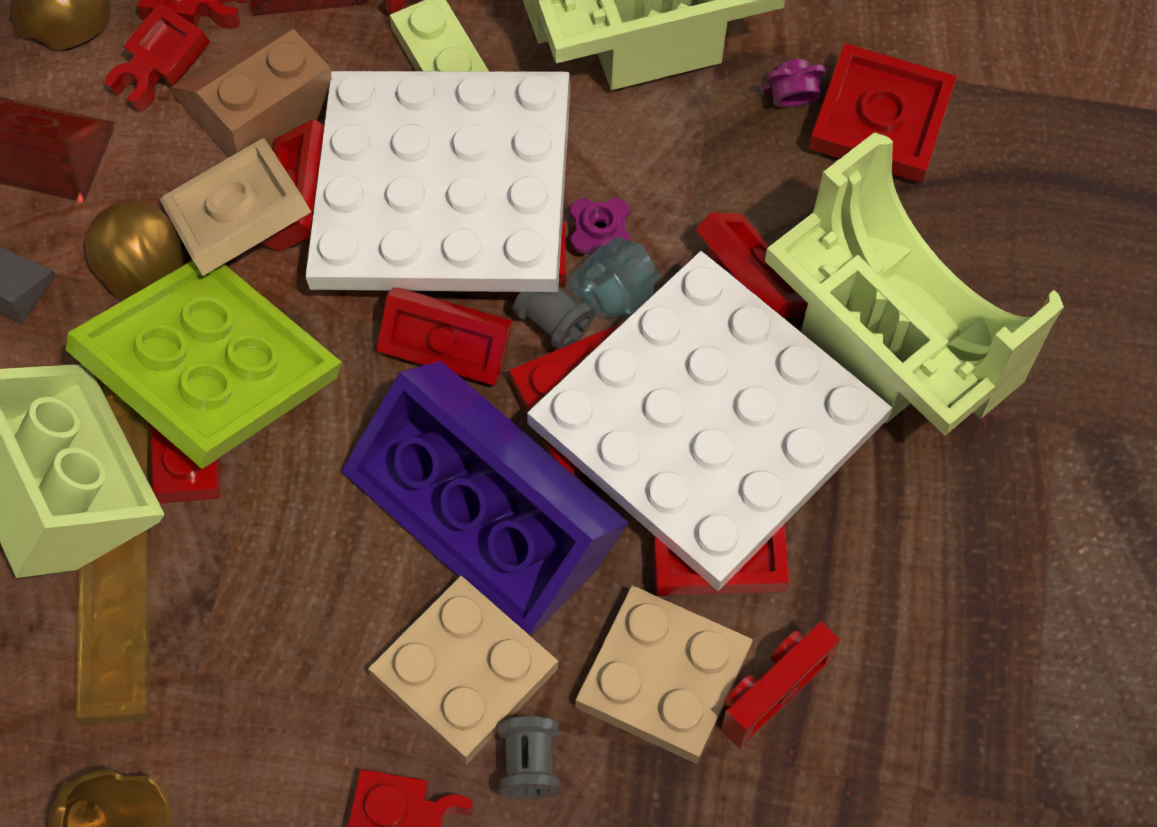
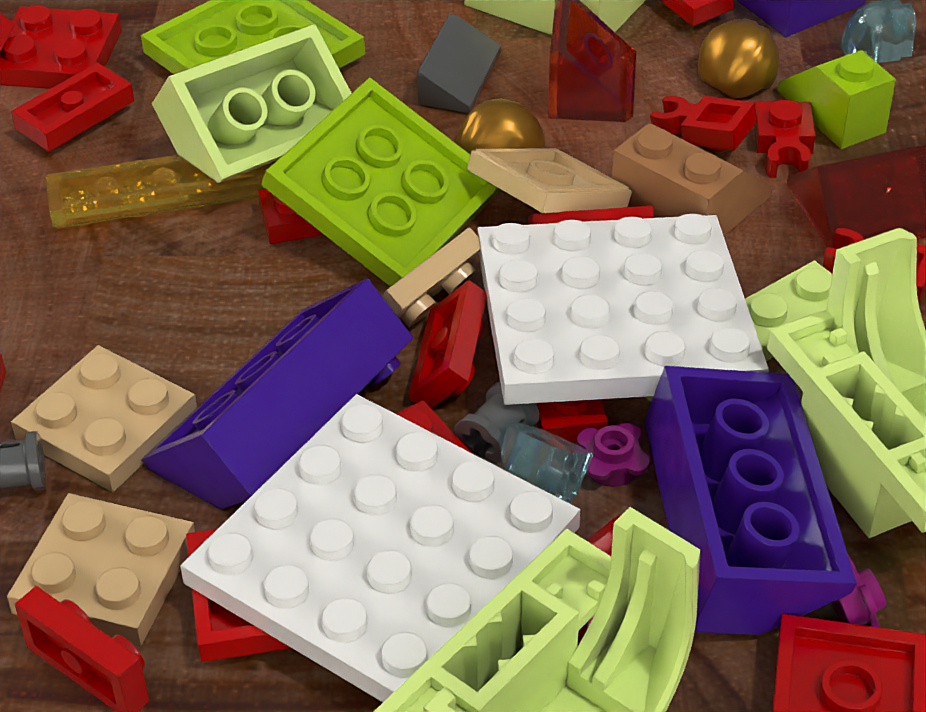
camera: 85 degrees right, 20 degrees down
(341, 327) = (445, 269): none -> tan plate
(693, 131) = (748, 494): none -> dark purple slope

